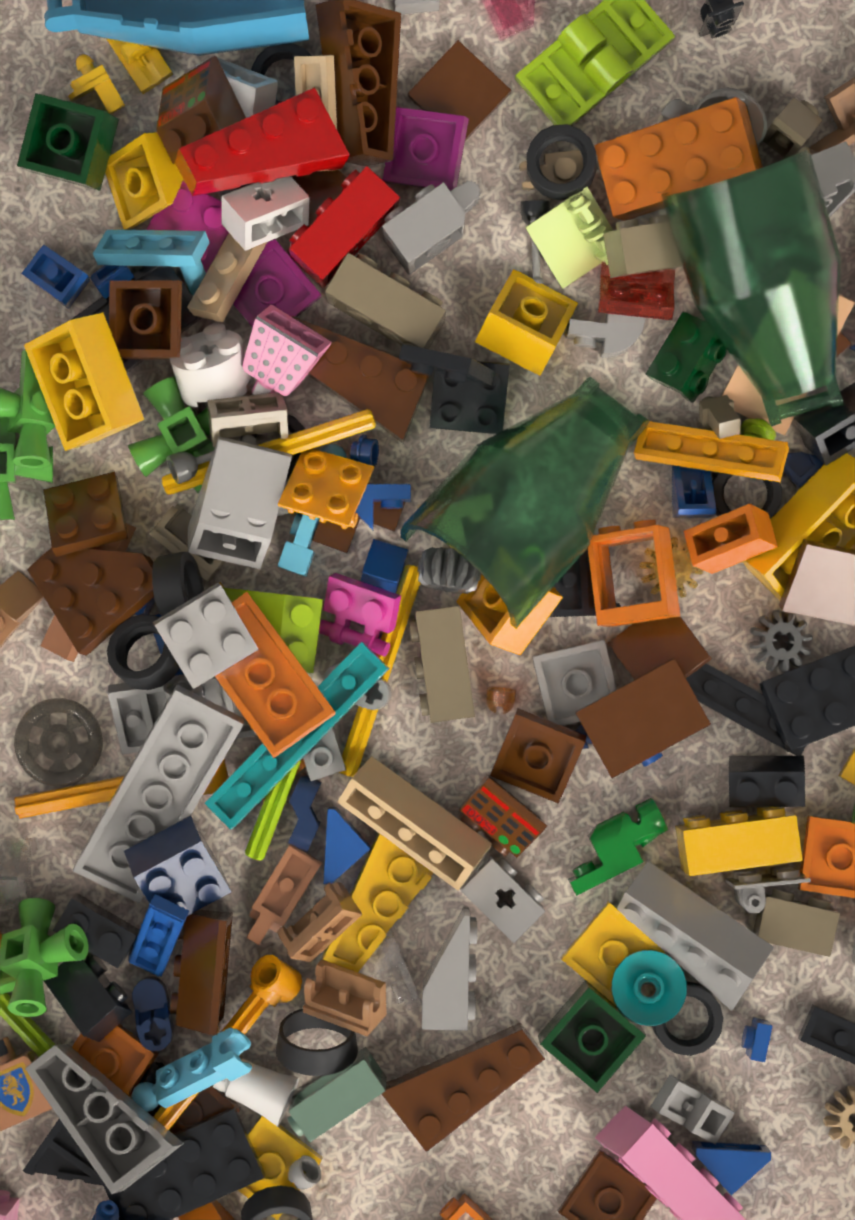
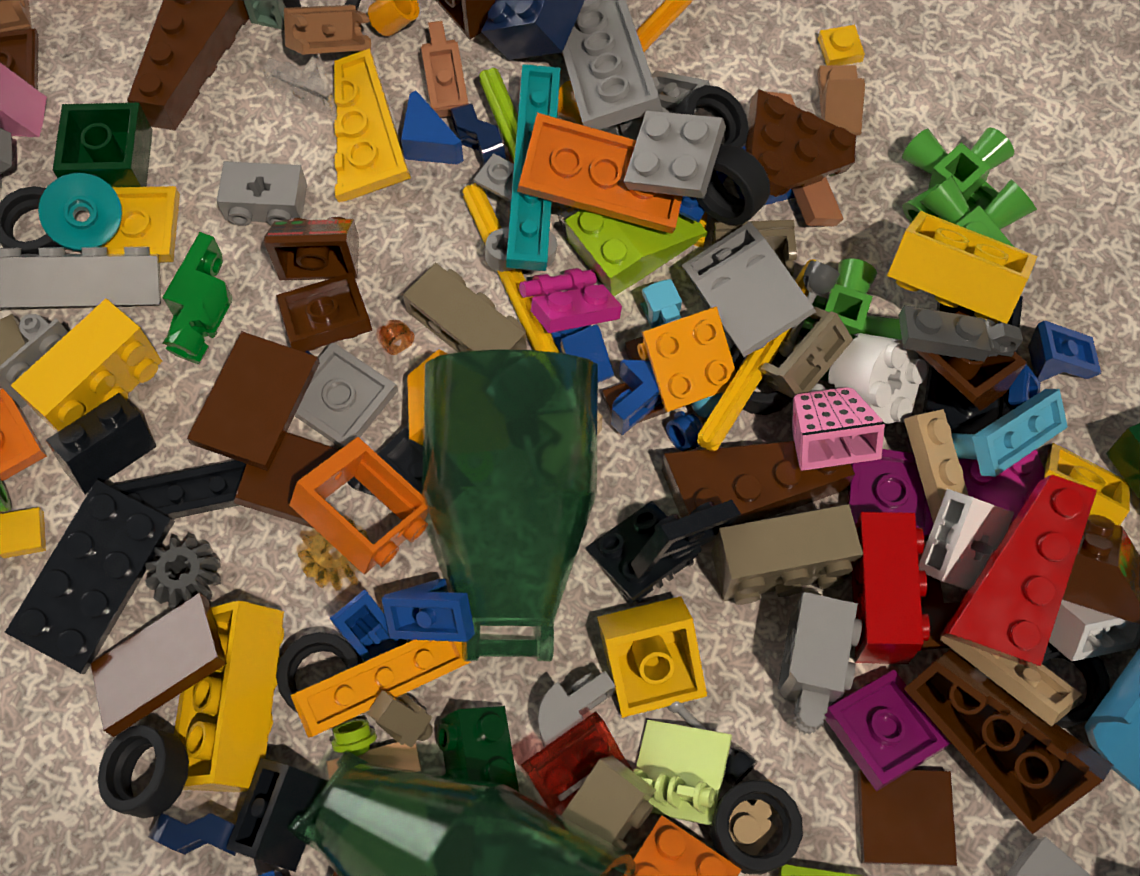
camera: 140 degrees right, 20 degrees down
(58, 773) = (711, 34): clear smoke plate -> none
(85, 514) = (855, 200): reddish brown plate -> none
(144, 336) = (956, 334): none -> dark grey hinge
(320, 924) = (393, 66): medium nougat hinge -> none
(414, 823) = (381, 184): tan brick -> none
(446, 985) = (248, 93): light grey slope -> none
(649, 464) = (428, 613): none -> blue slope
(730, 538) = (297, 608): orange brick -> none
(801, 467) = (290, 745): dark blue tile -> none

